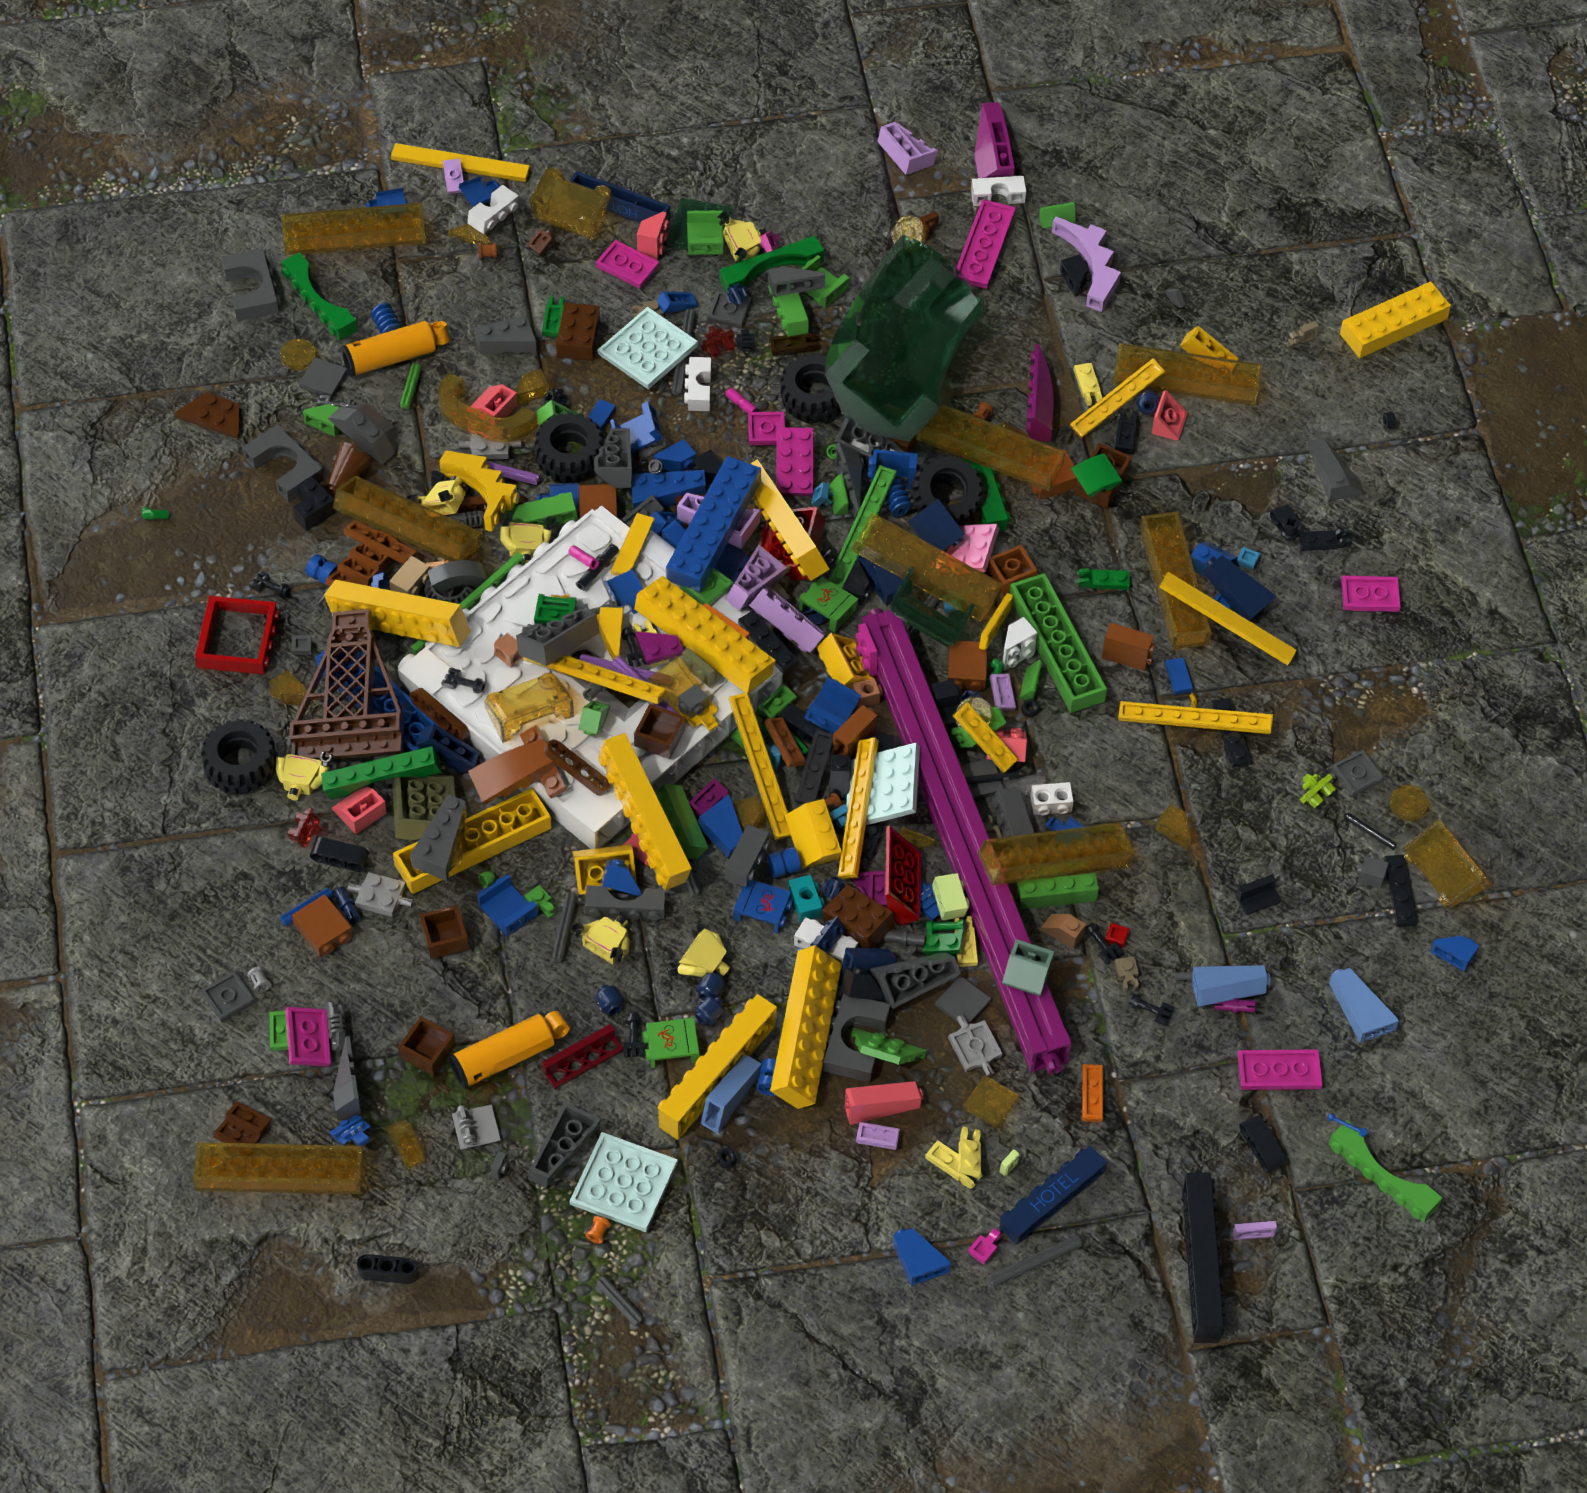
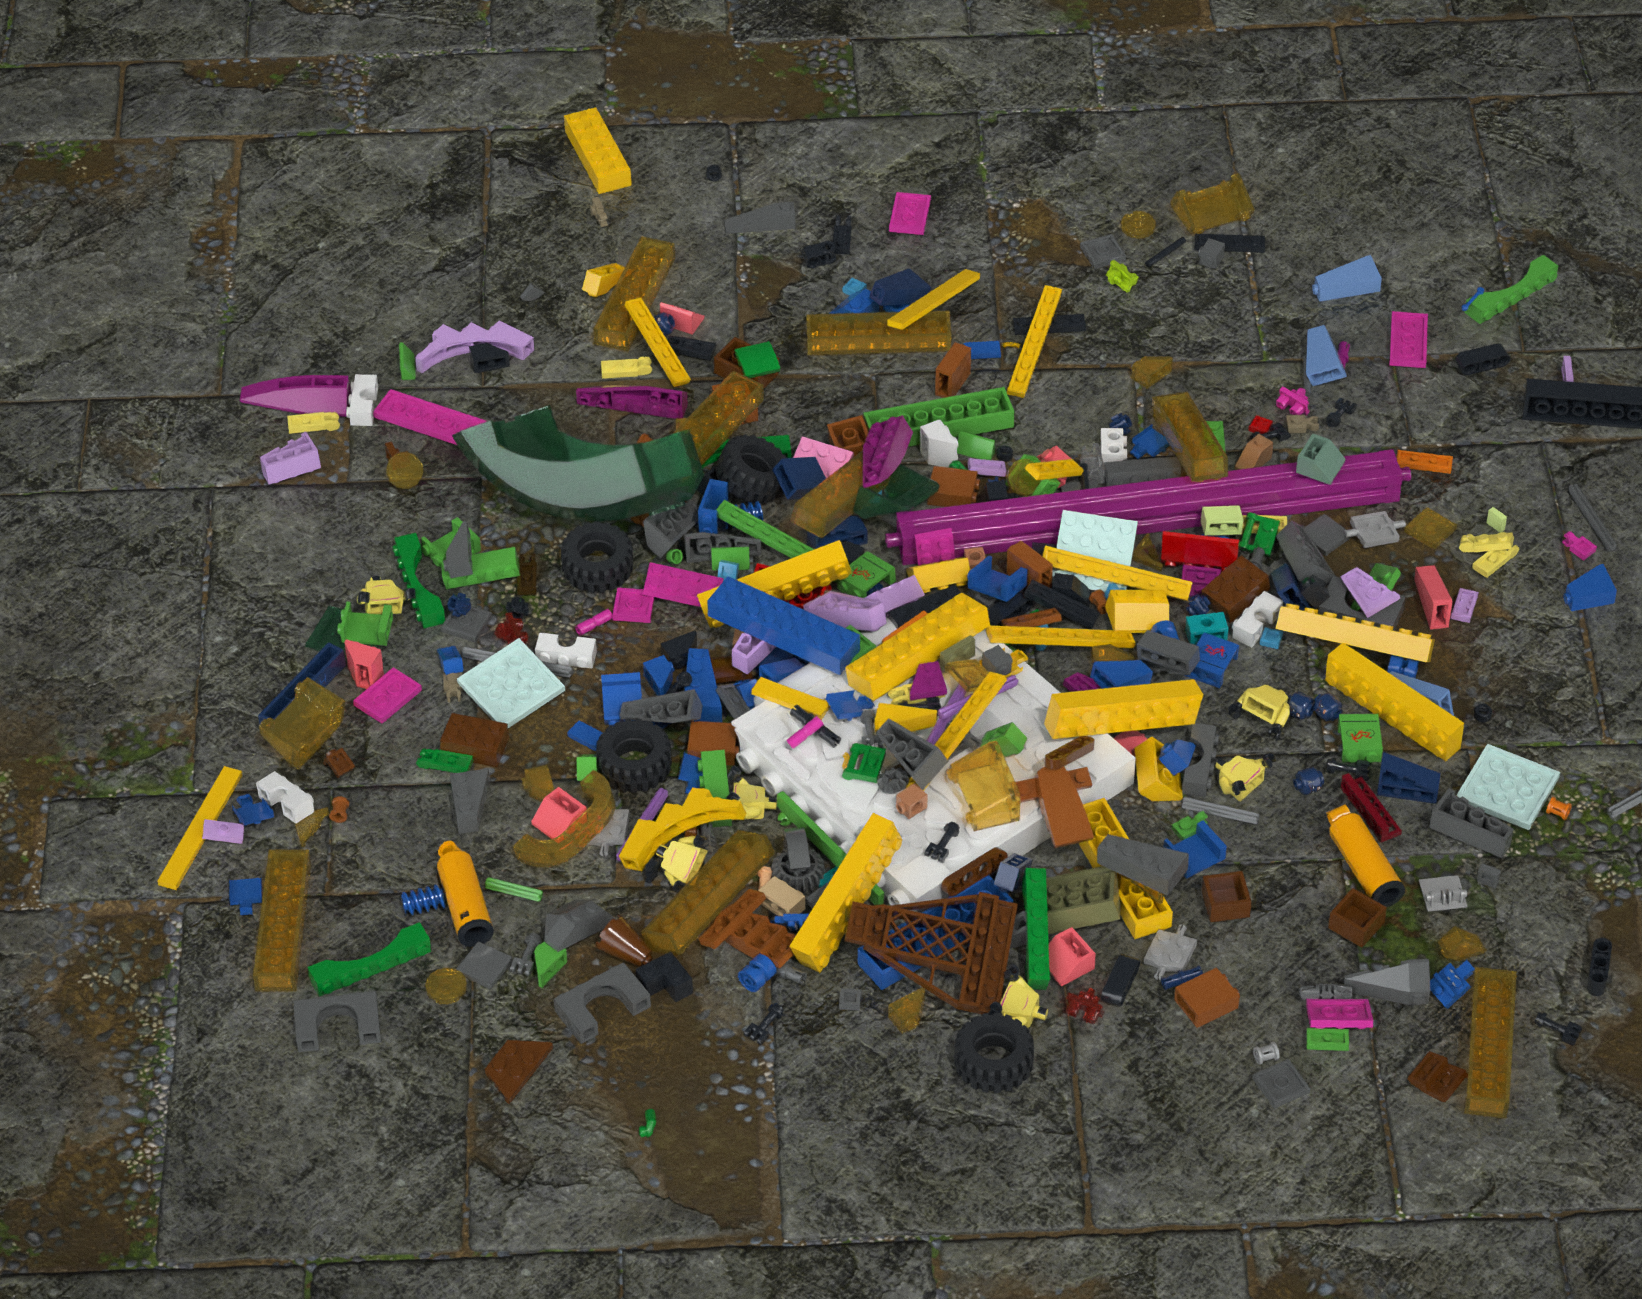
camera: 80 degrees left, 10 degrees down
(230, 663) = (824, 1079): red window -> none
(287, 919) = (1179, 1012): blue axle -> none
(316, 1217) = (1569, 1033): none -> black hinge
(556, 395) = (559, 760): black gear -> none
(615, 1085) = (1407, 780): none -> dark blue wedge
(659, 731) = (1031, 688): reddish brown piece -> none
(769, 241) = (392, 573): dark pink plate -> none
(830, 935) = (1255, 603): dark blue hinge -> none
(861, 1031) = (1367, 592): none -> lavender wing
(962, 158) = (313, 422): none -> light yellow hinge
(973, 587) = (884, 449): none -> magenta wedge
(996, 621) = (924, 458): yellow tile -> none
(1052, 1195) = (1530, 495): dark blue brick -> none
(1088, 807) = (1121, 421): none -> dark blue gear
(1104, 579) = (863, 384): green hinge -> none
(1157, 963) = (1295, 399): none -> dark pink hips
(1258, 895) = (1227, 329): black panel -> none
(1455, 950) = (1298, 215): blue slope -> none

